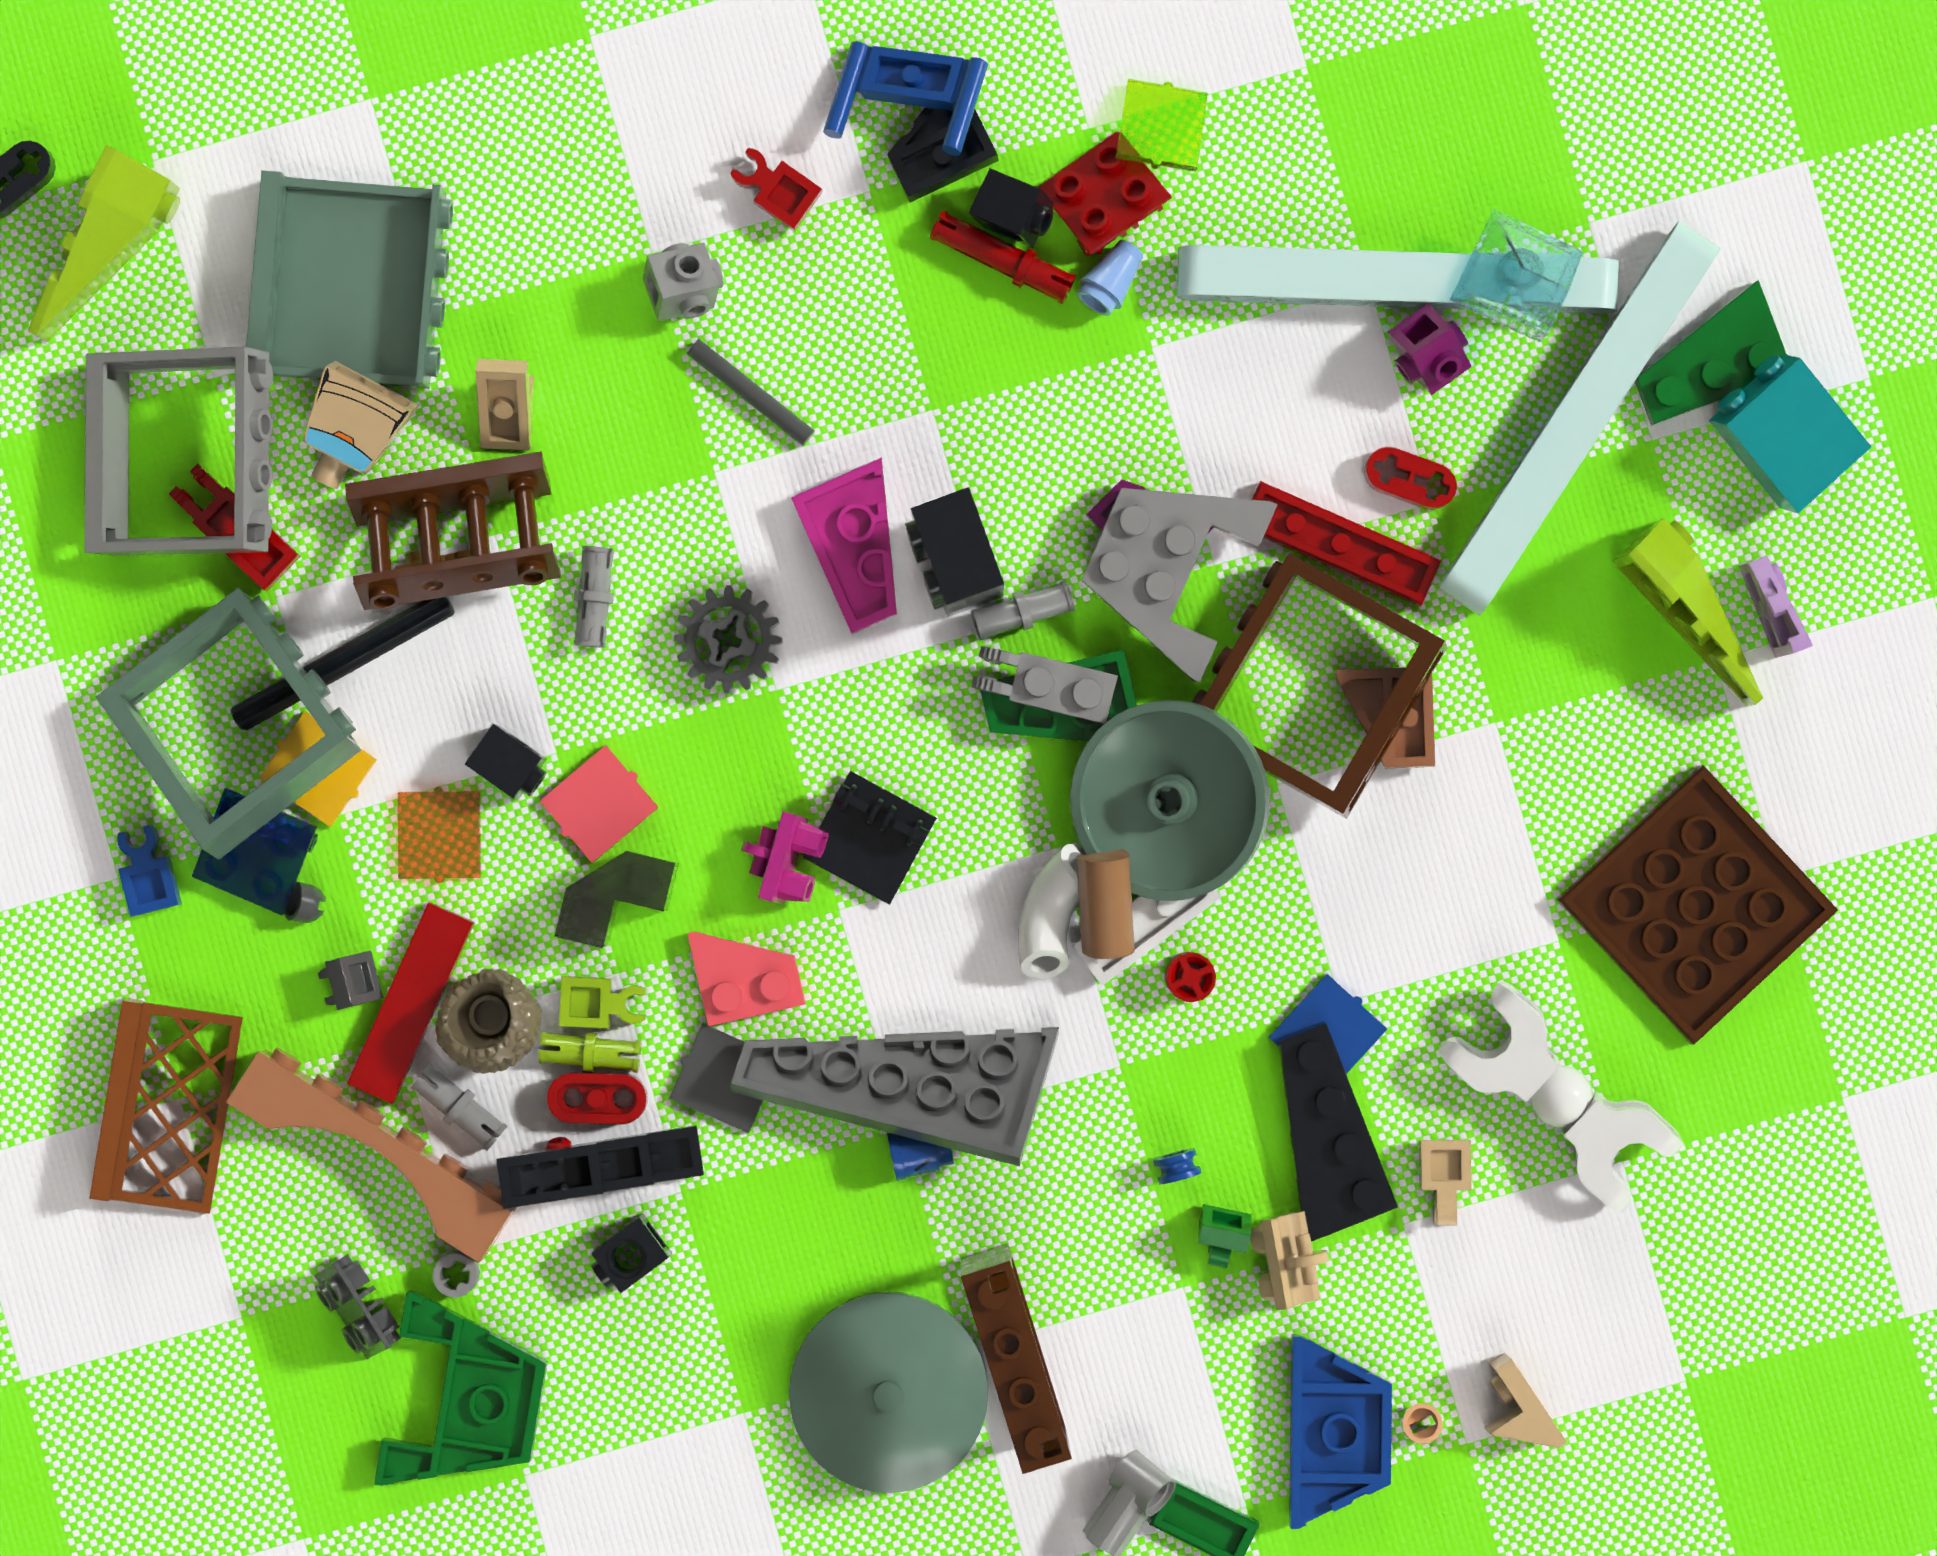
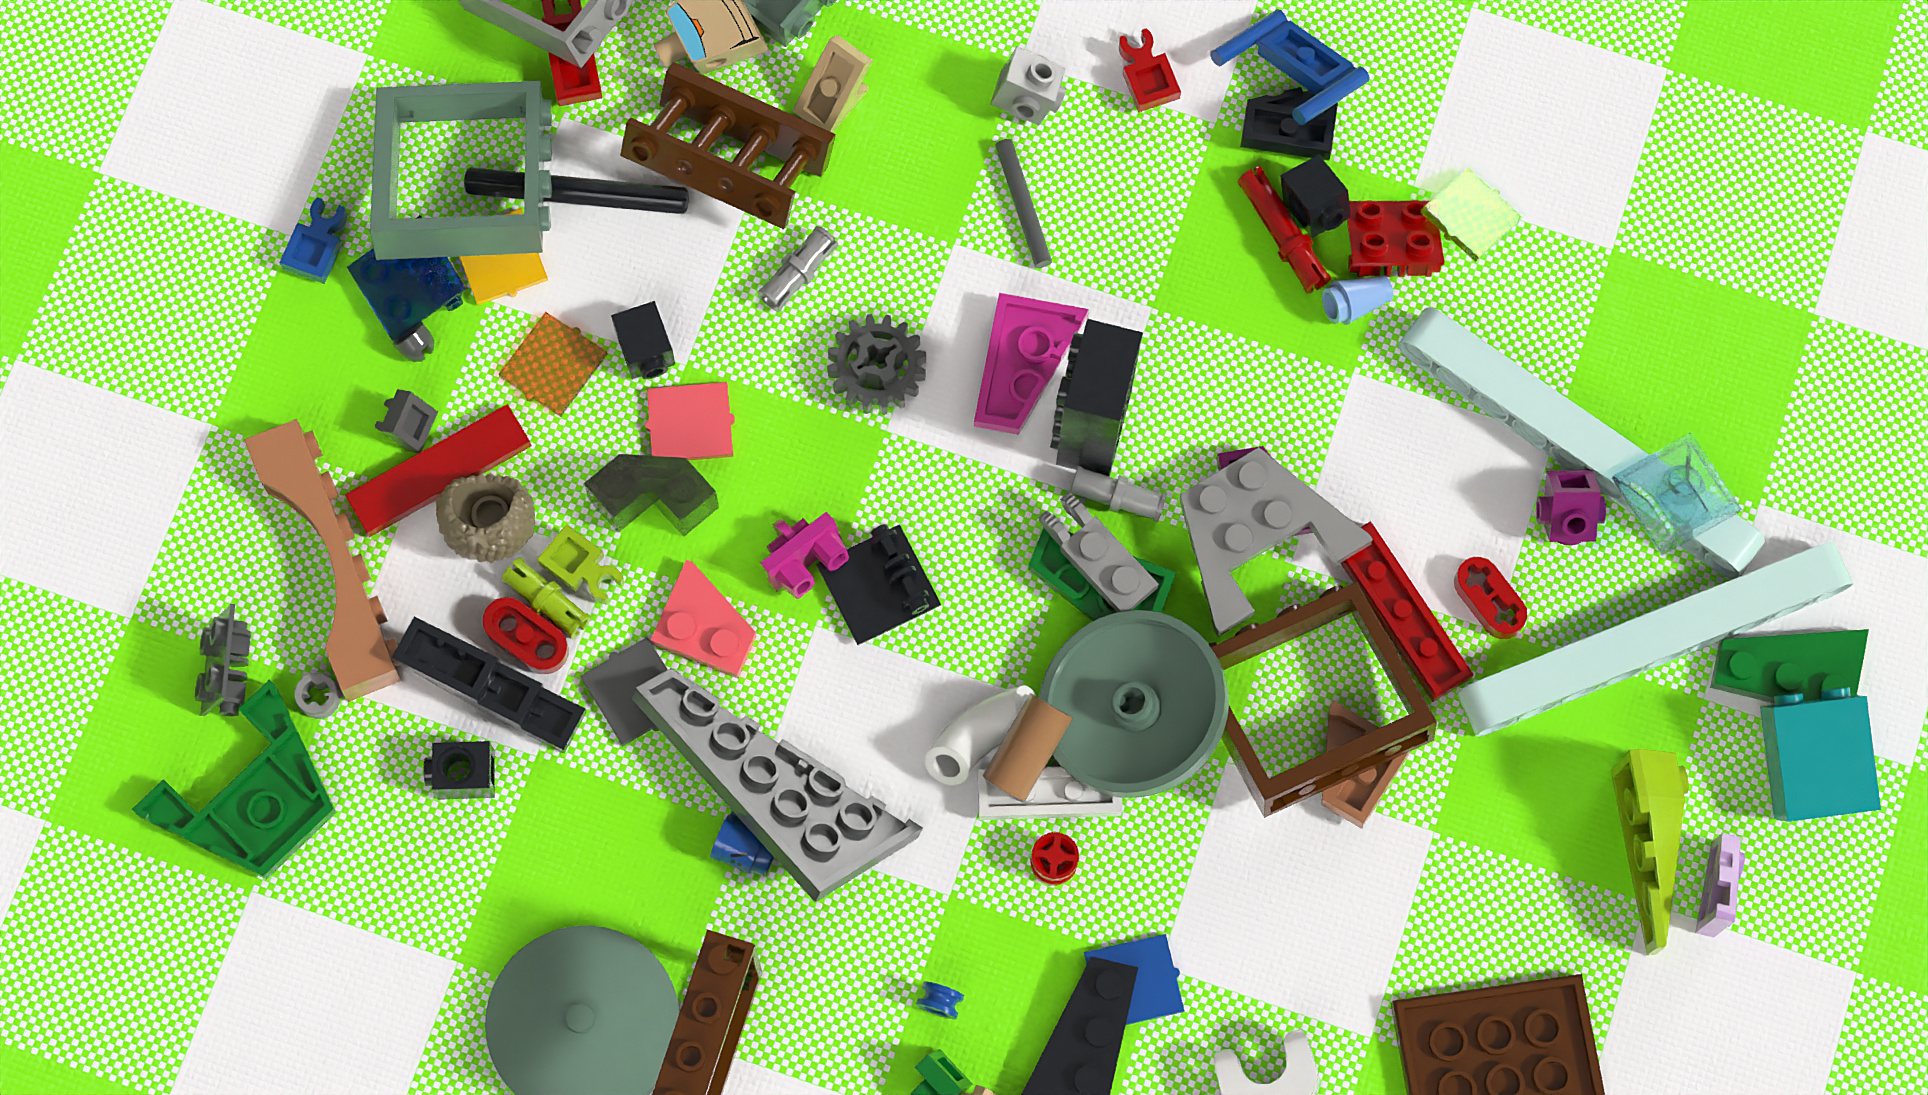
camera: 30 degrees right, 15 degrees down
(122, 1100) = (167, 390): dark orange fence -> none
(459, 1107) = (415, 569): light grey pin -> none

